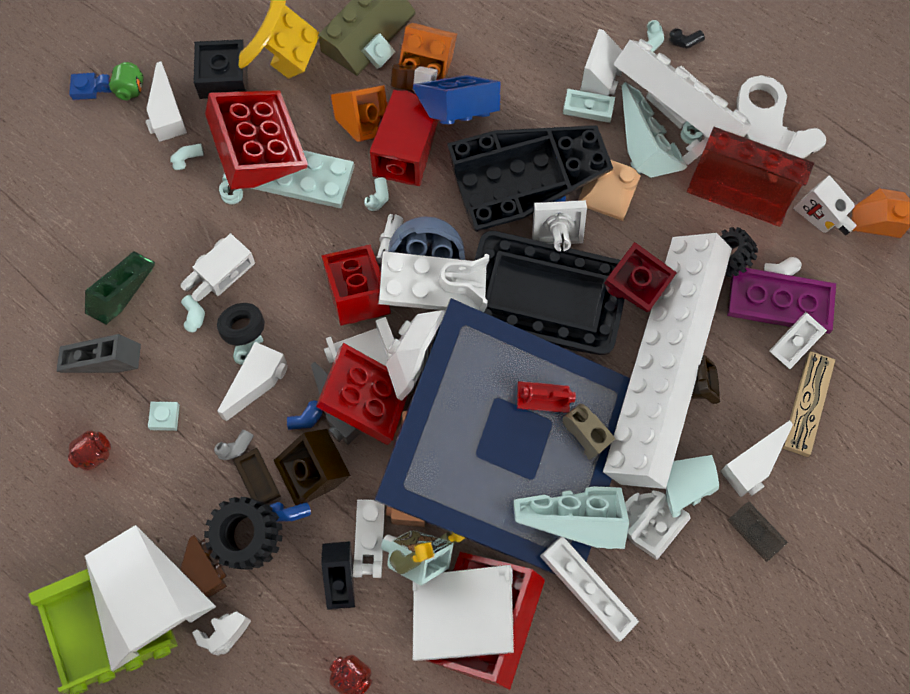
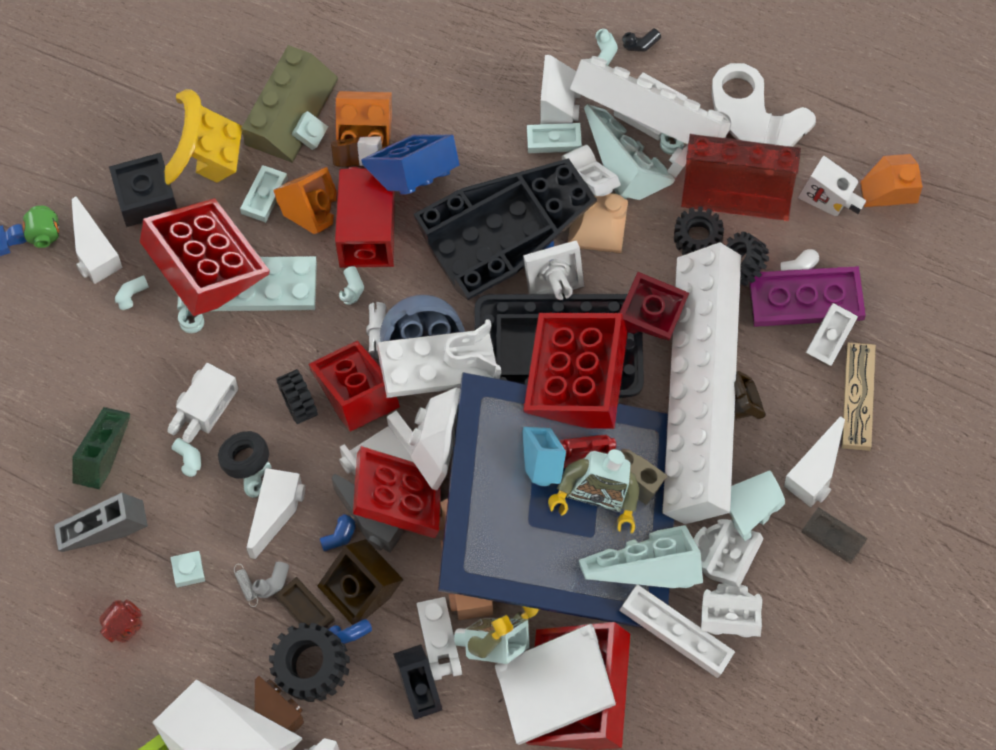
camera: 10 degrees left, 5 degrees down
(210, 443) = (245, 585): none -> white piece
(301, 283) = (297, 396): none -> black tyre
(319, 100) = (261, 196): none -> light aqua plate
(505, 394) = (543, 455): none -> medium azure slope
(552, 431) = (600, 481): none -> torso
(557, 319) = (577, 368): none -> red slope
(618, 148) = (596, 176): none -> white plate
(645, 582) = (731, 611): none -> white slope
(696, 206) = (697, 219): none -> black tyre

